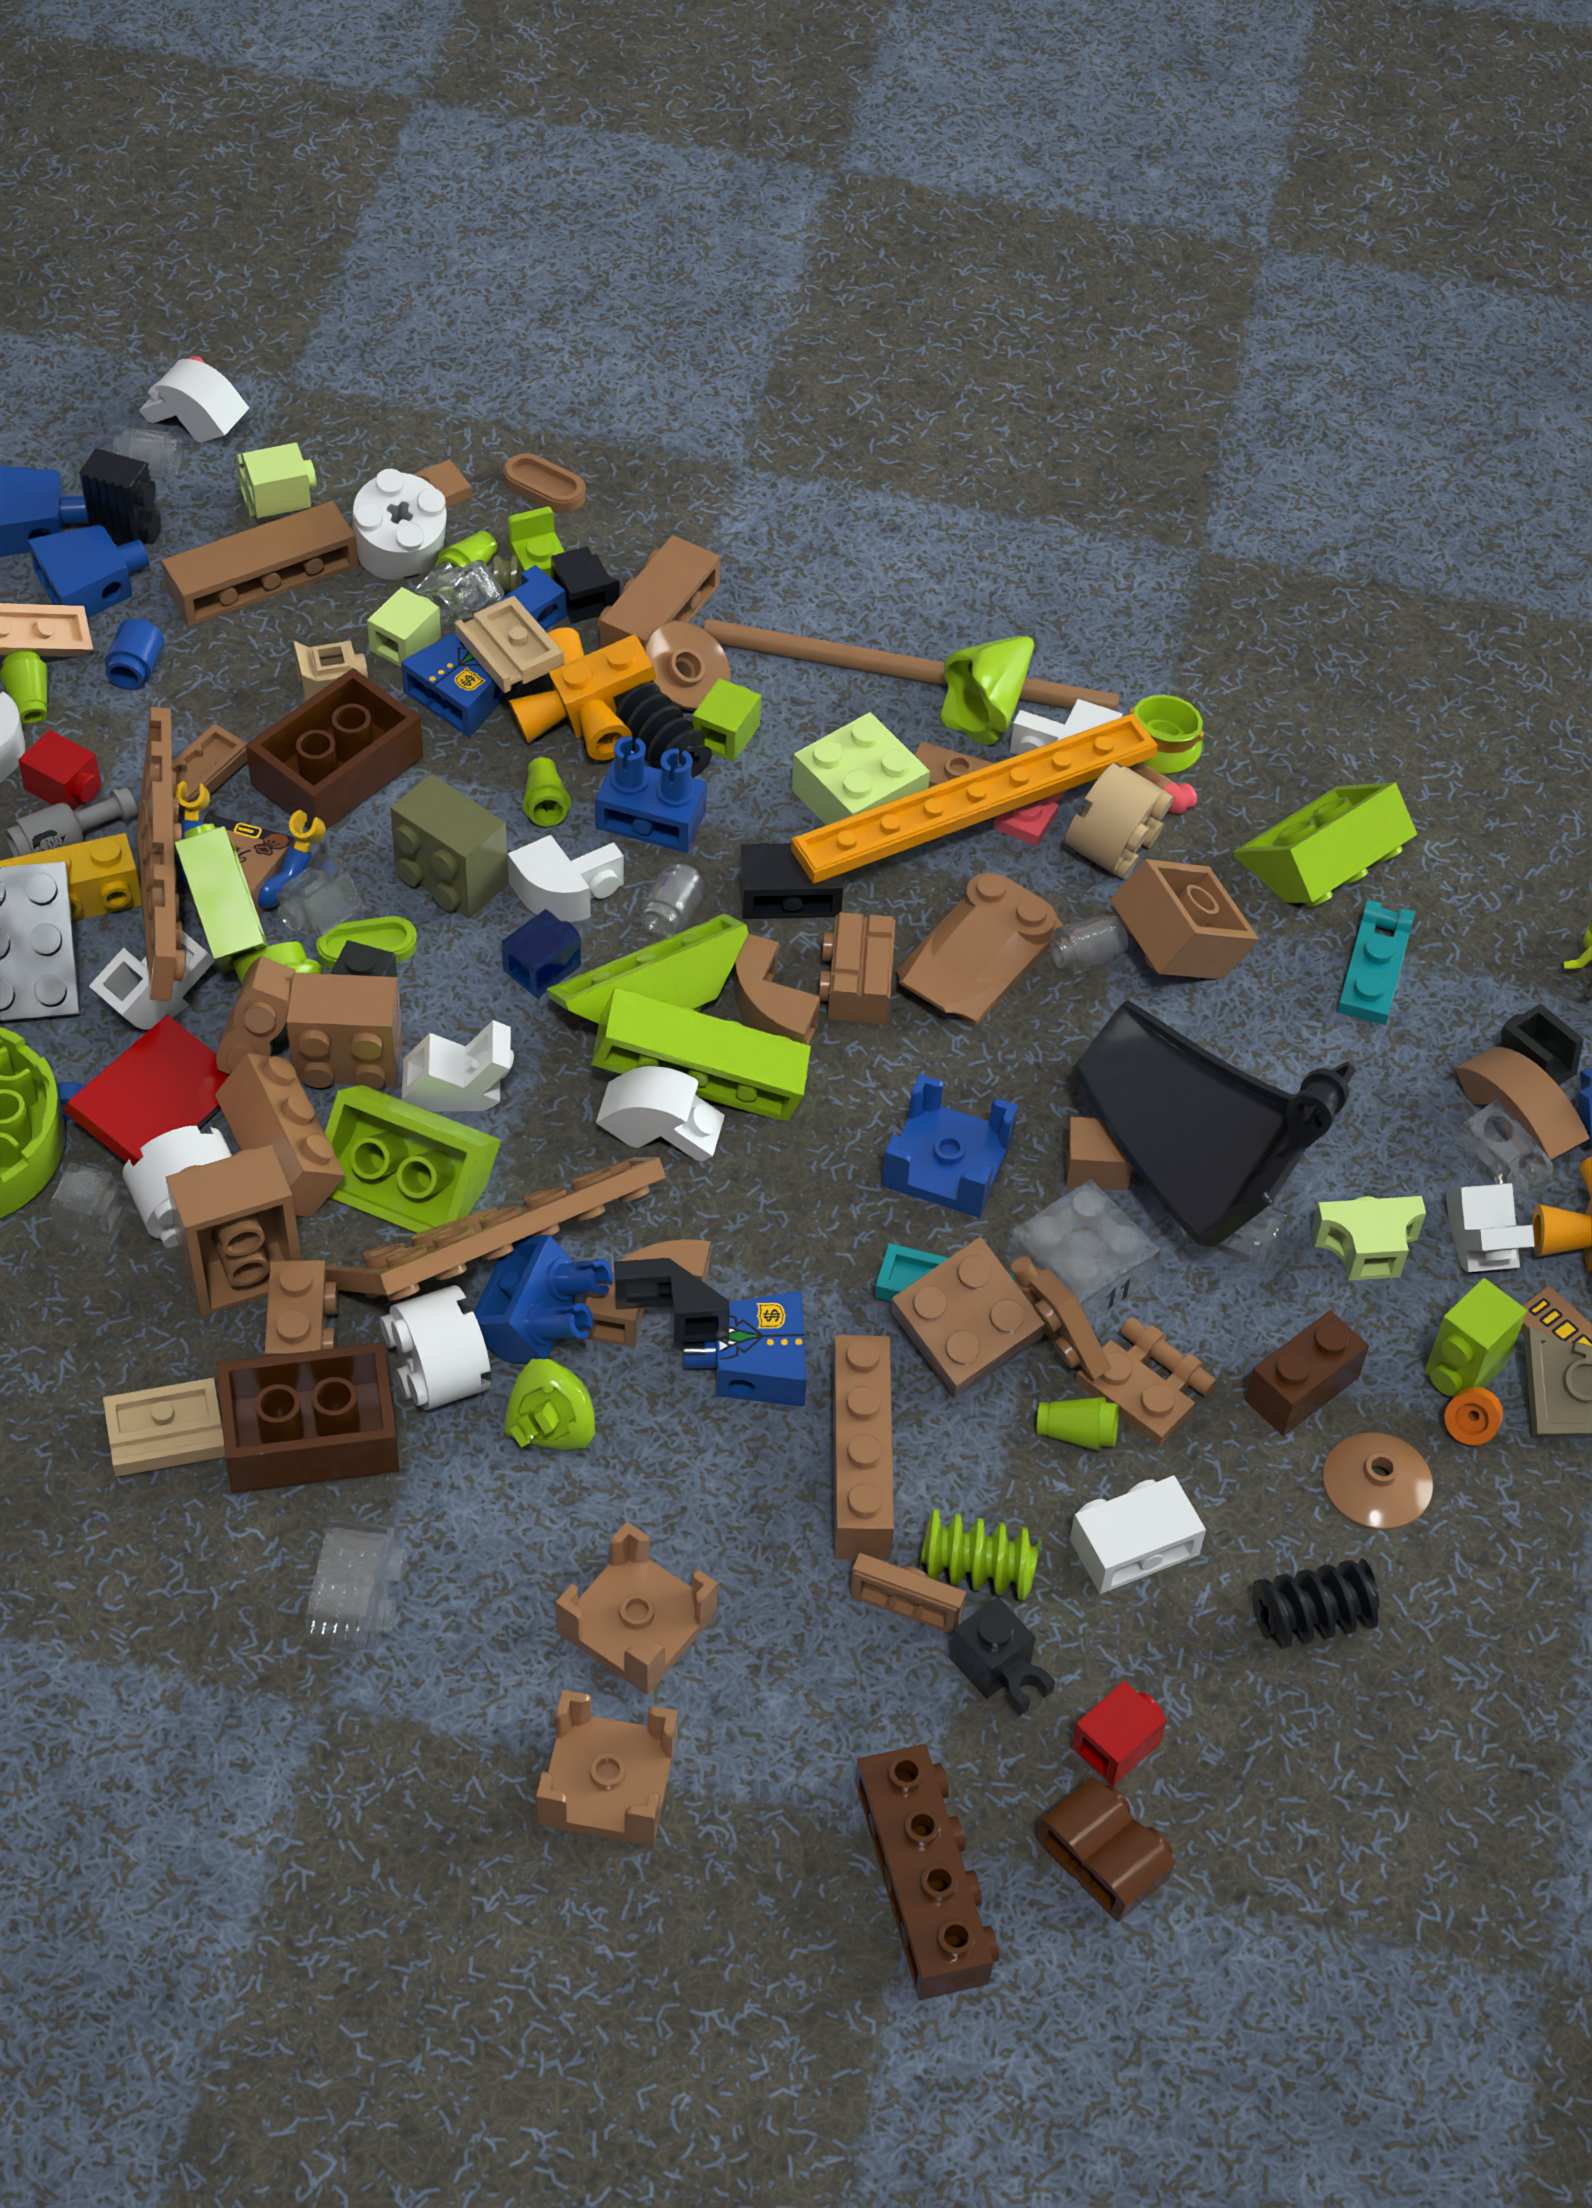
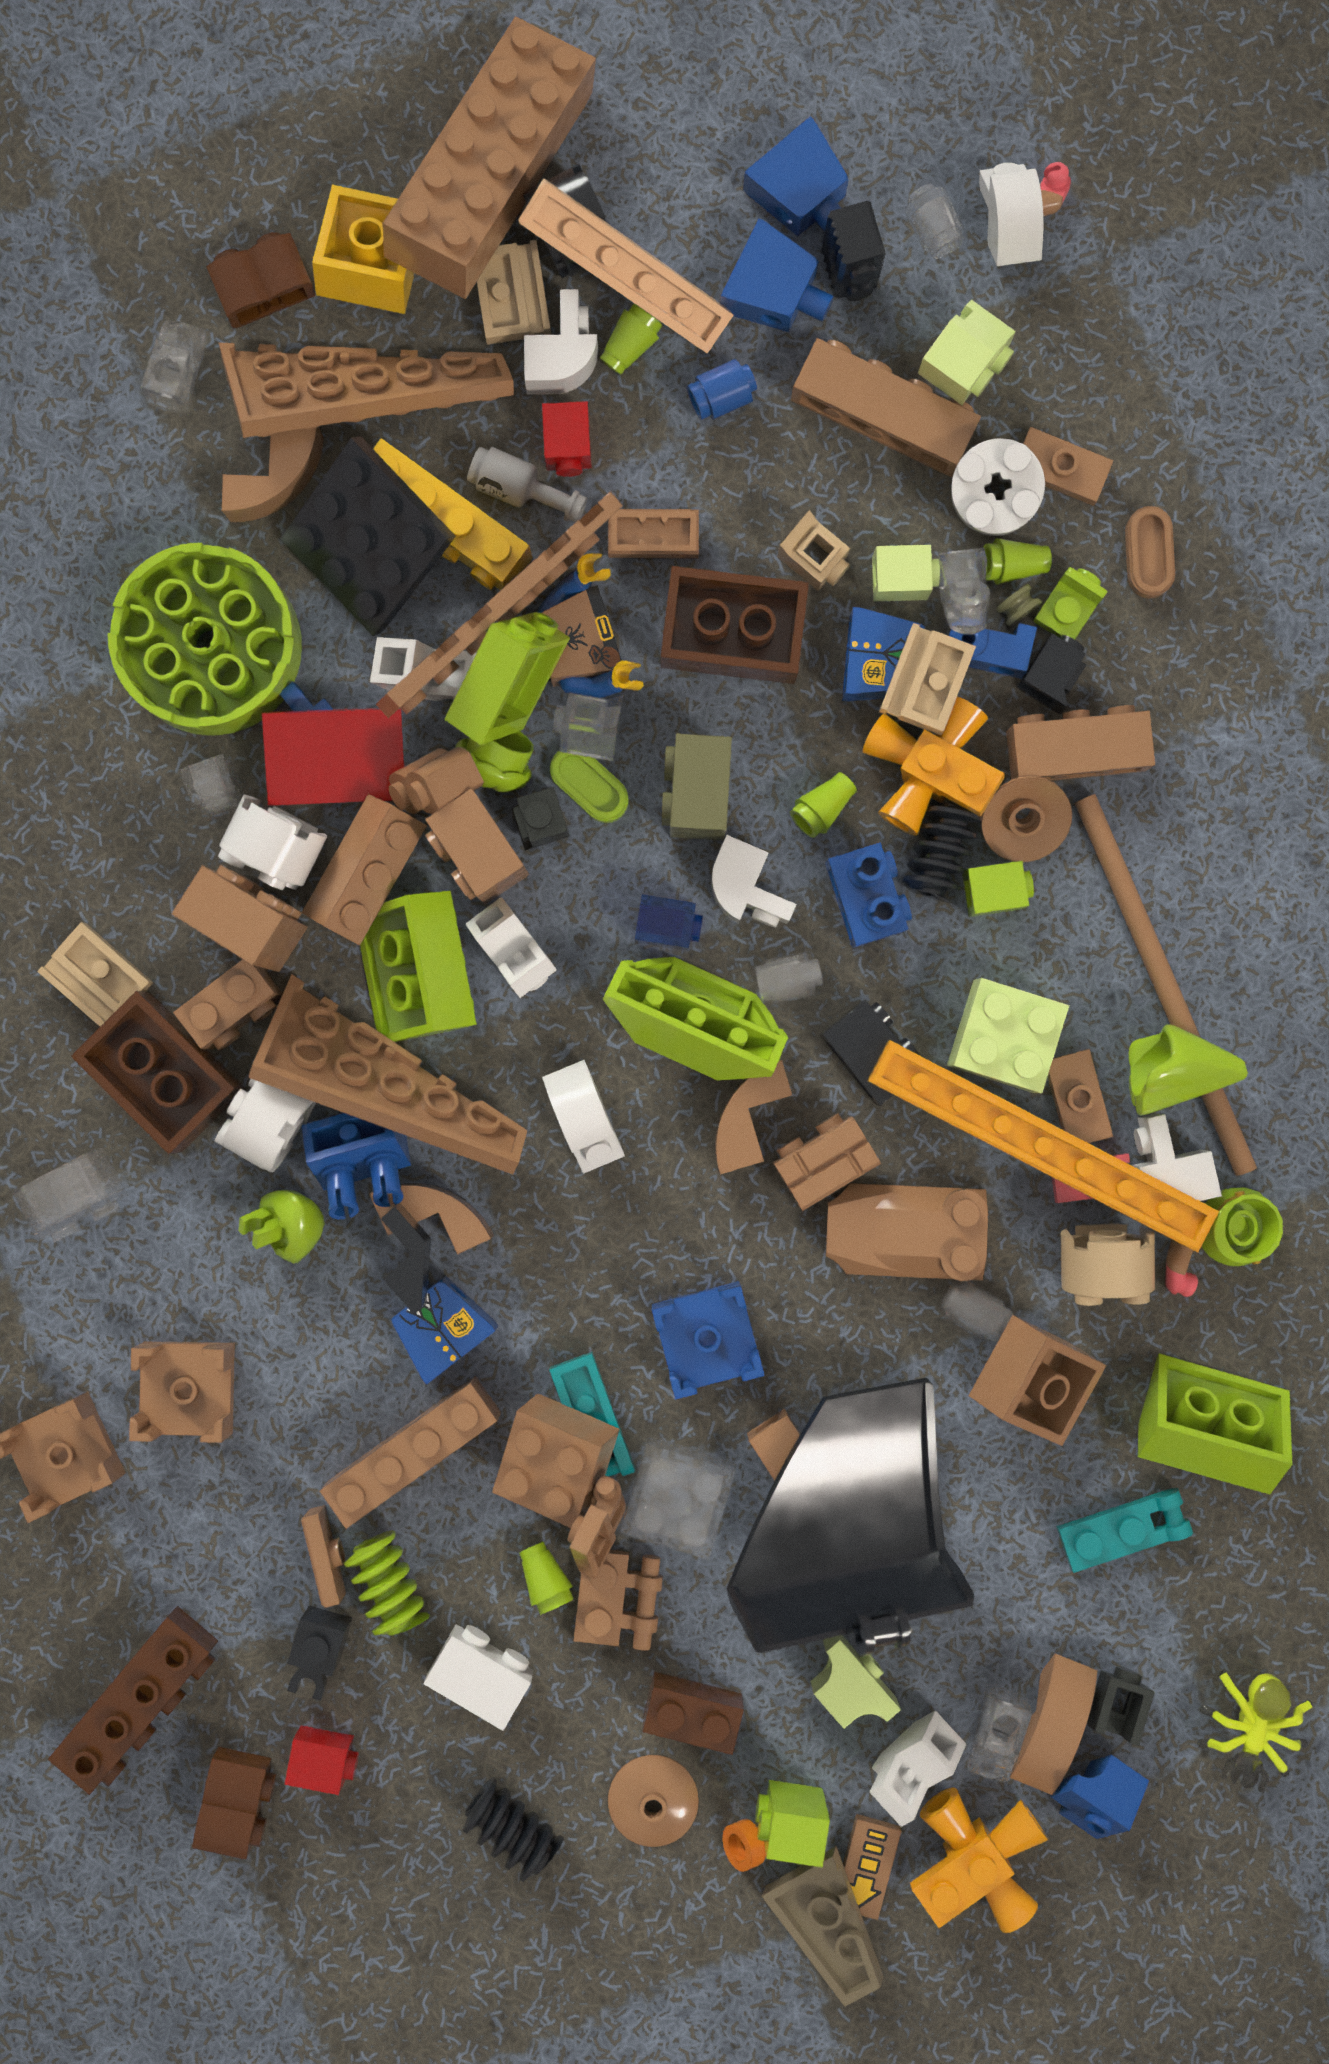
camera: 55 degrees right, 35 degrees up
(728, 1059) = (644, 1114): lime brick -> none

